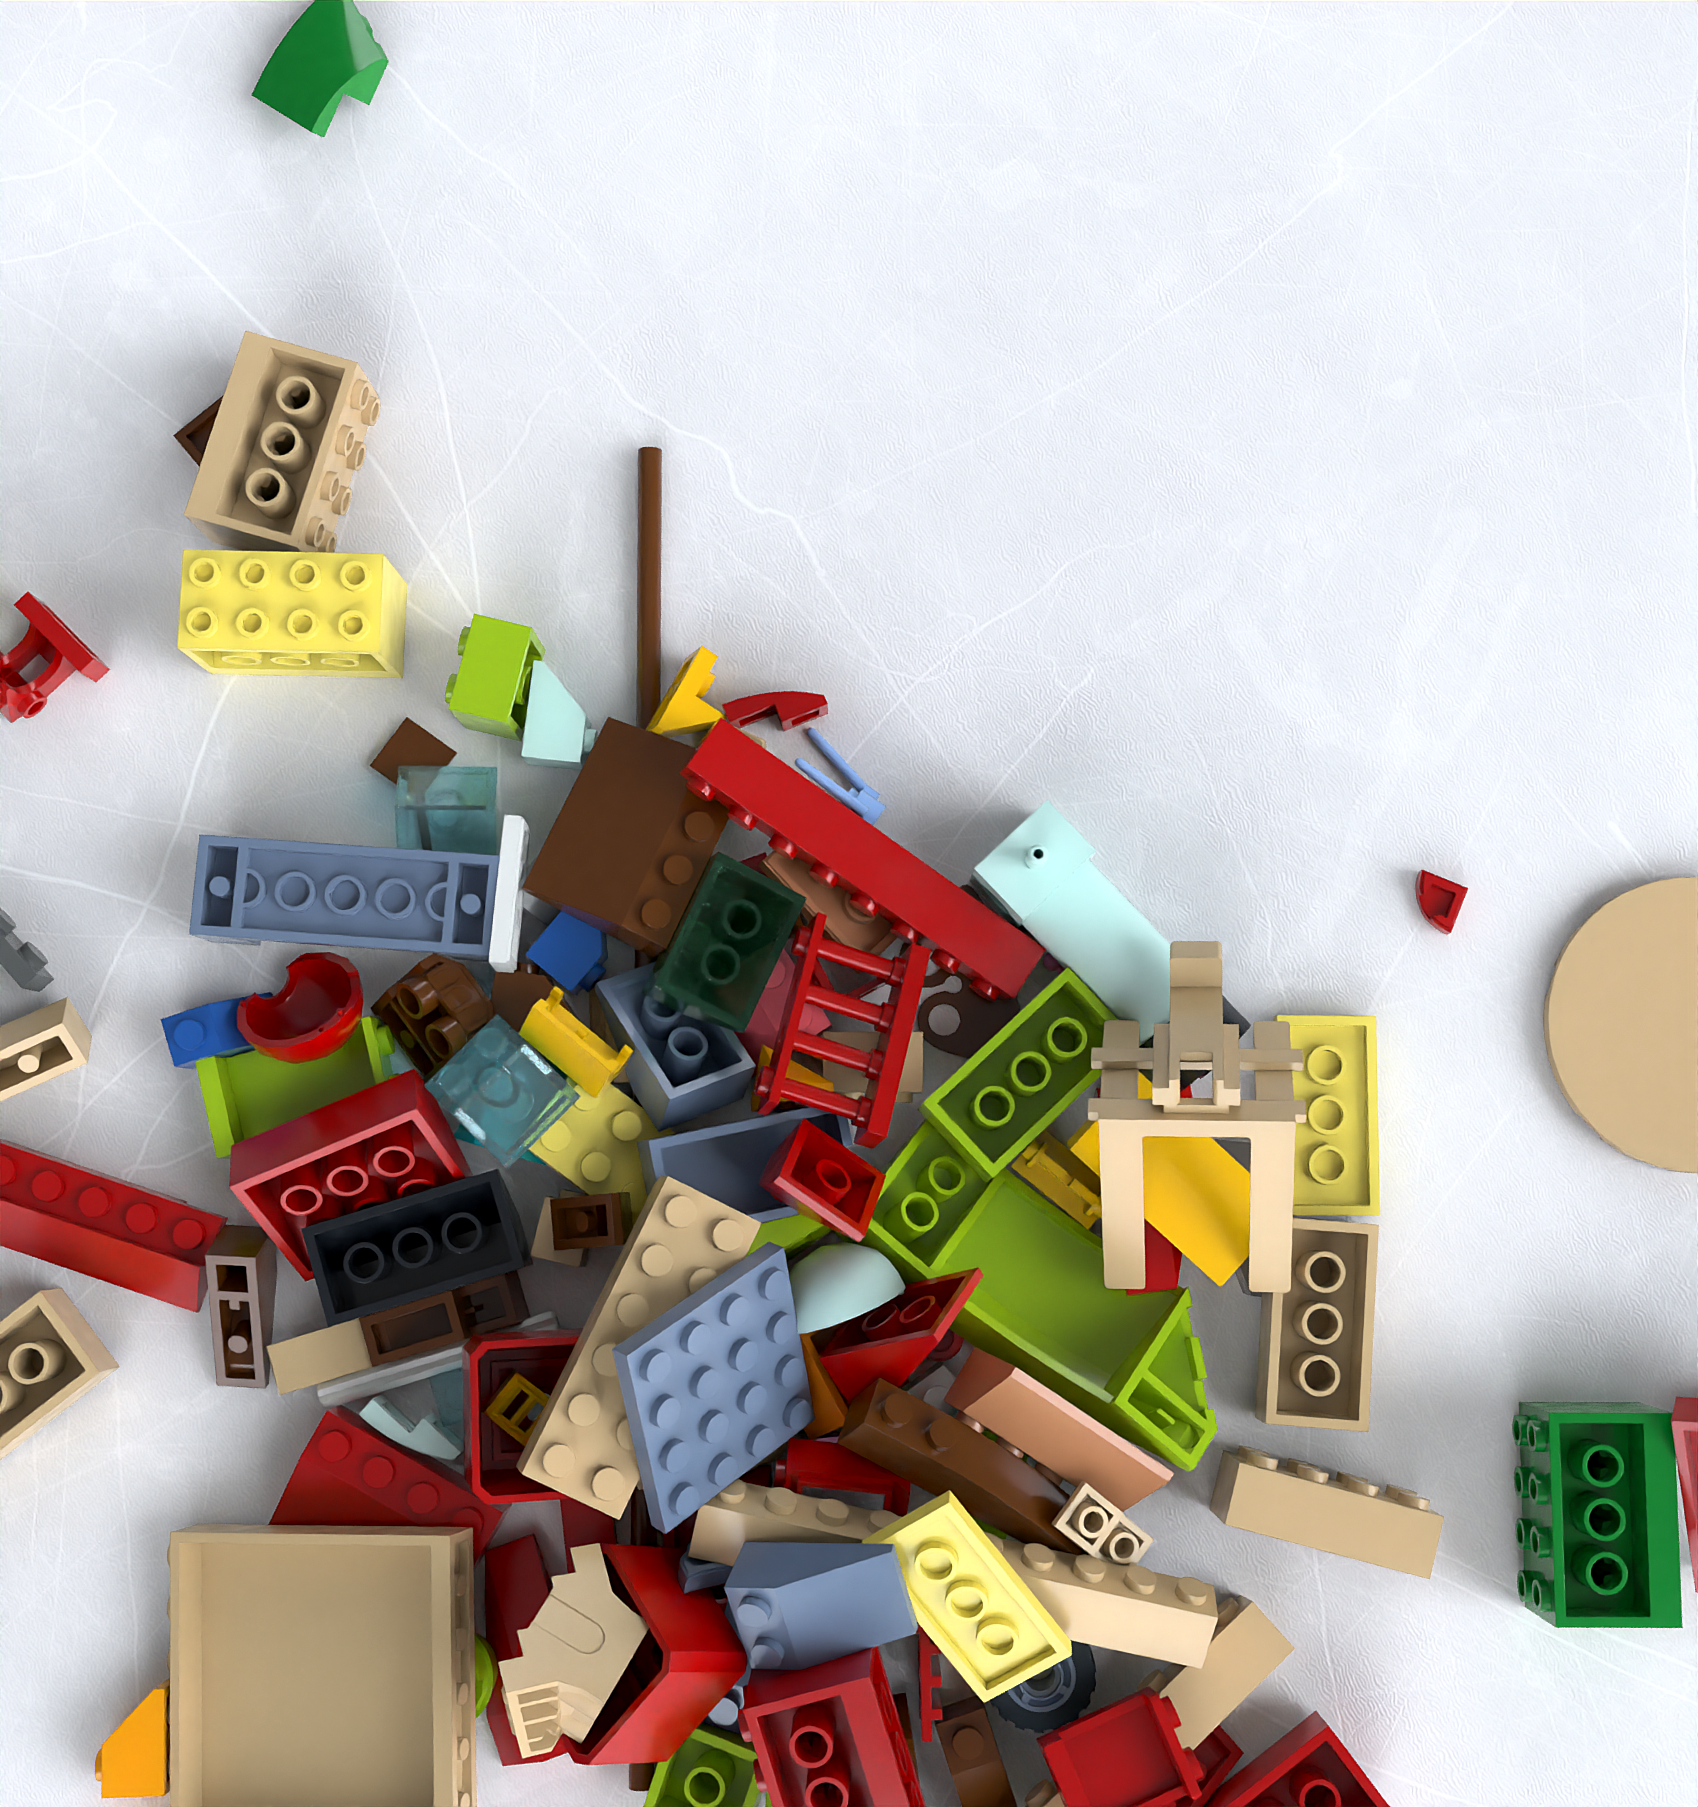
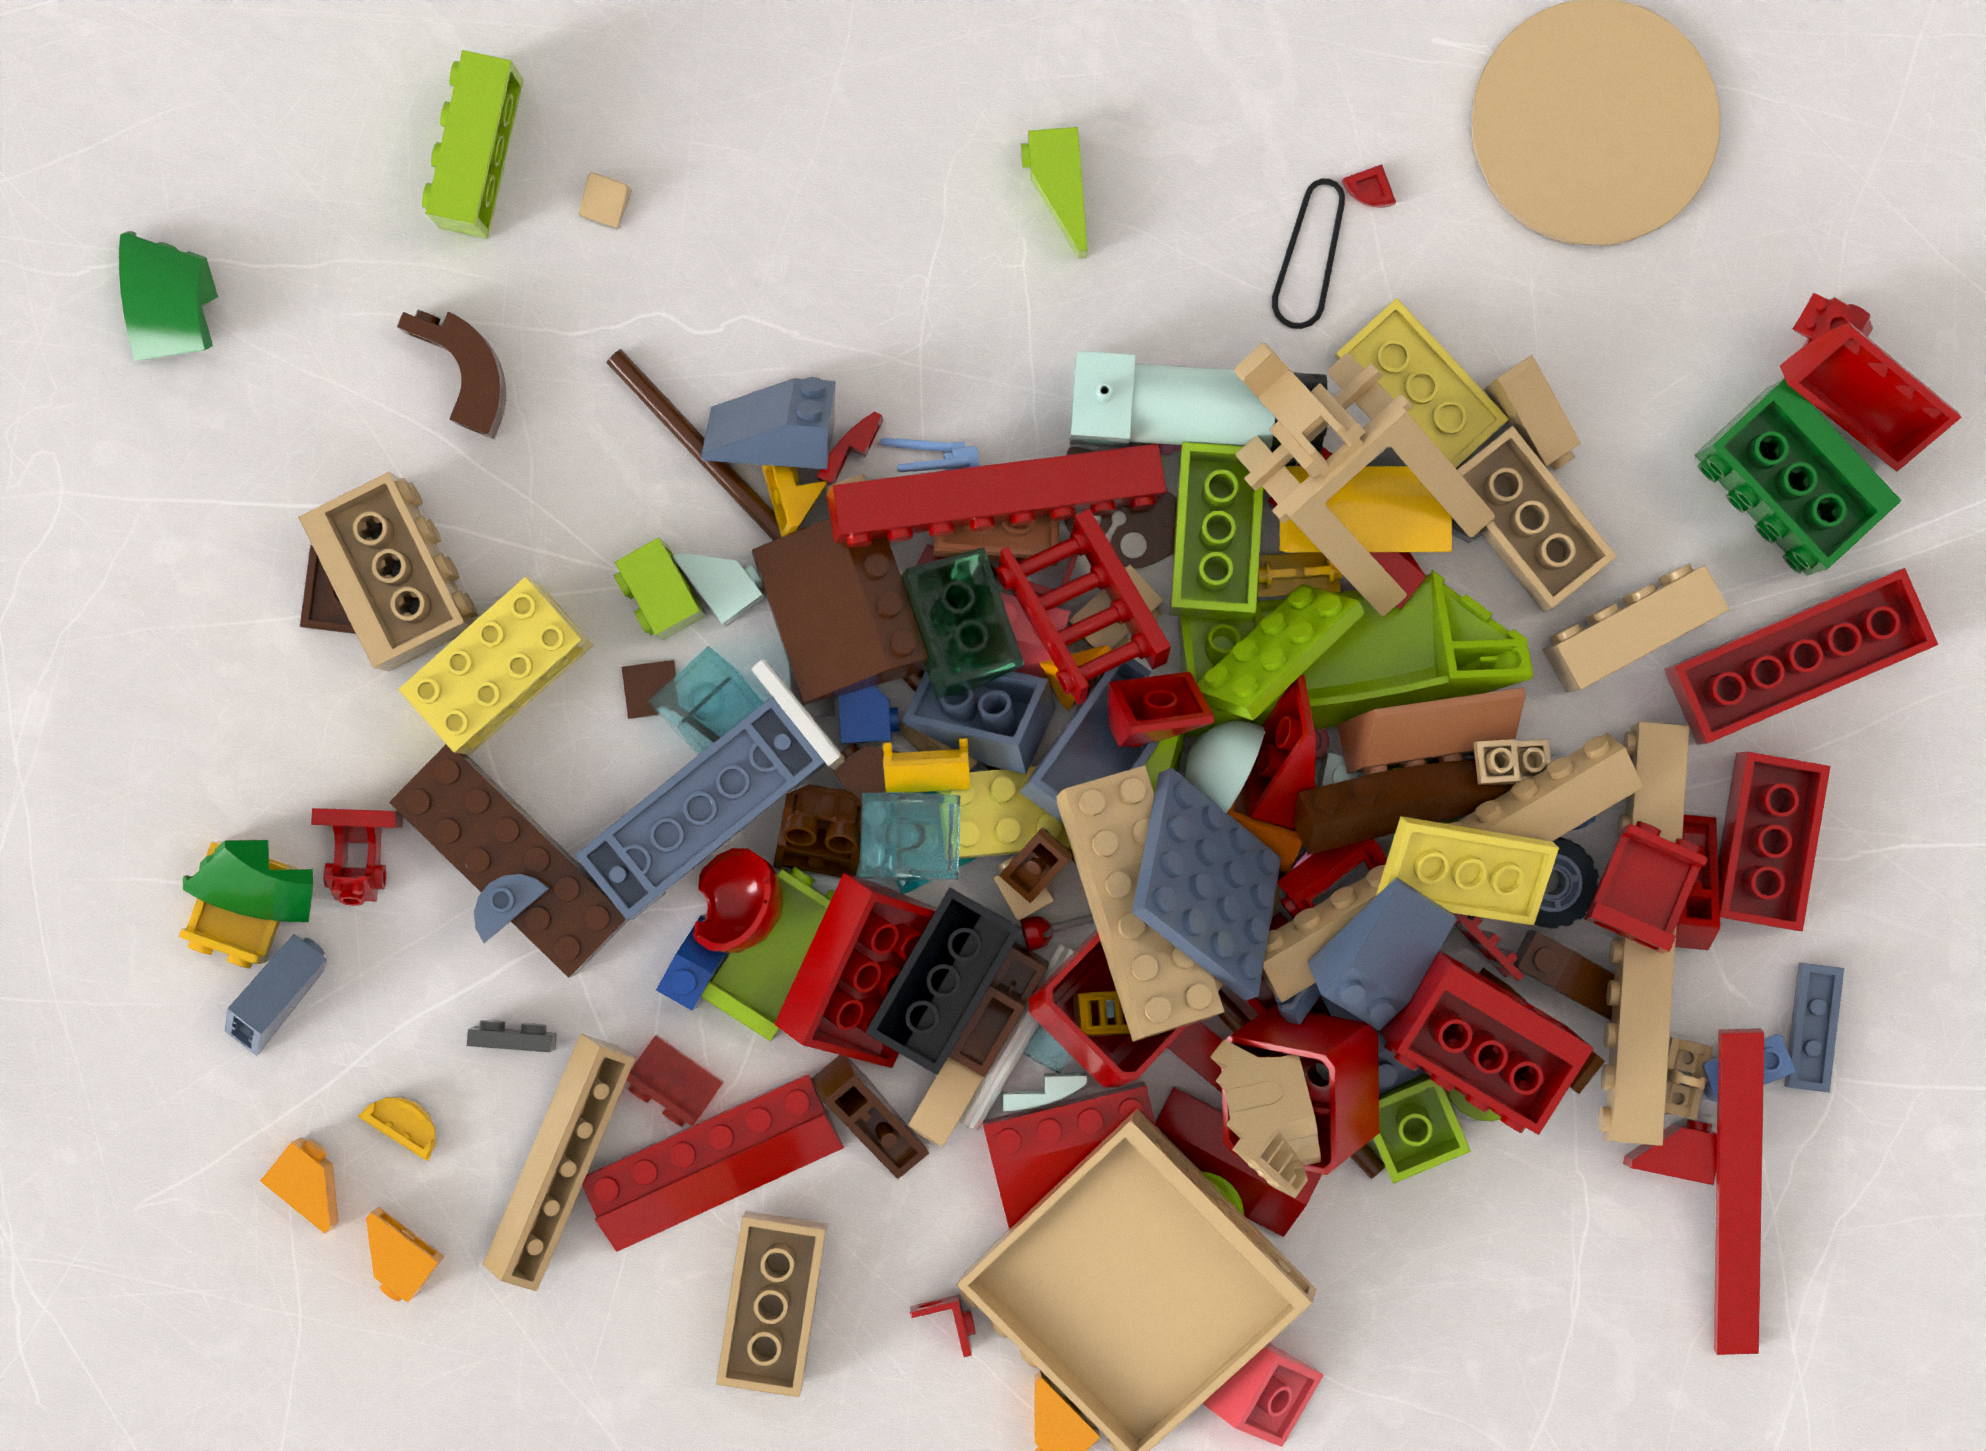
camera: 45 degrees left, 5 degrees up
(102, 819) = (504, 901): none -> sand blue plate
(105, 1115) = (673, 1082): none -> clear red bracket
(149, 788) = (494, 837): none -> reddish brown brick
(149, 1568) = (963, 1319): none -> red bracket
(522, 365) = (482, 377): none -> reddish brown arch
(545, 1282) = (1039, 931): none -> red hinge
(696, 164) = (473, 144): none -> lime brick
(728, 631) = (775, 426): none -> sand blue slope
(765, 314) = (604, 200): none -> tan slope
(981, 1232) = (1278, 651): none -> lime plate
(1172, 638) = (1057, 175): none -> lime slope
(1346, 930) = (1311, 187): none -> black piece
(1409, 1231) = (1535, 412): none -> tan slope
(1457, 1681) = (1801, 656): none -> red brick

